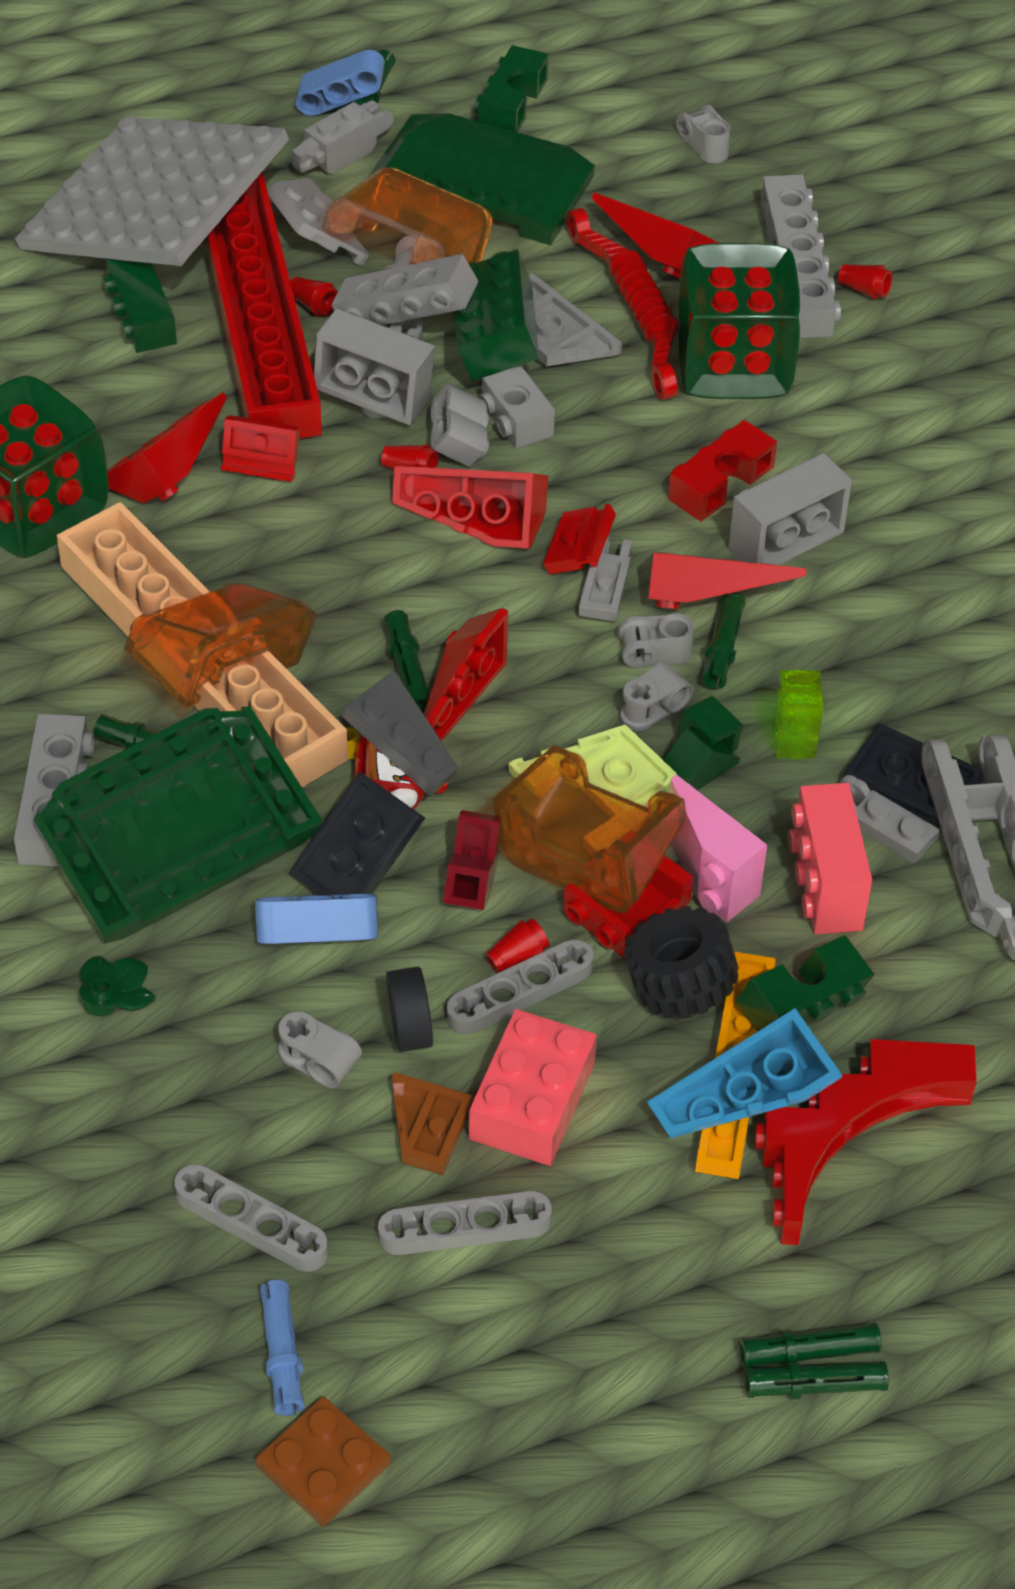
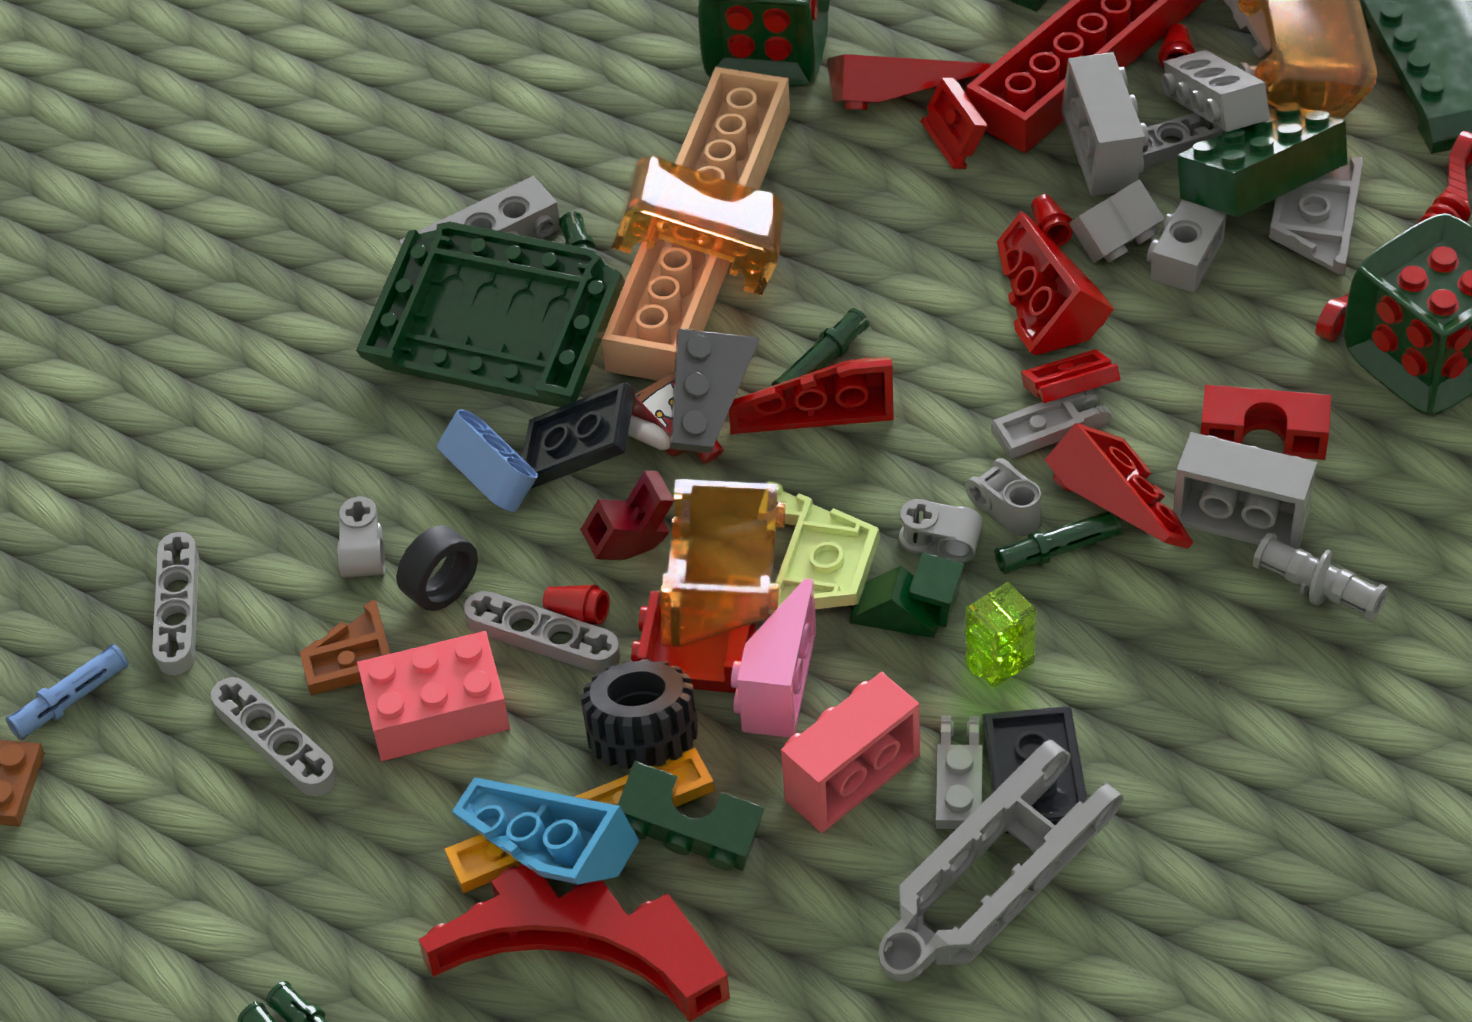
camera: 60 degrees right, 0 degrees up
(113, 985) = (328, 389): dark green plate -> none
(889, 526) = (1319, 577): none -> light grey piece

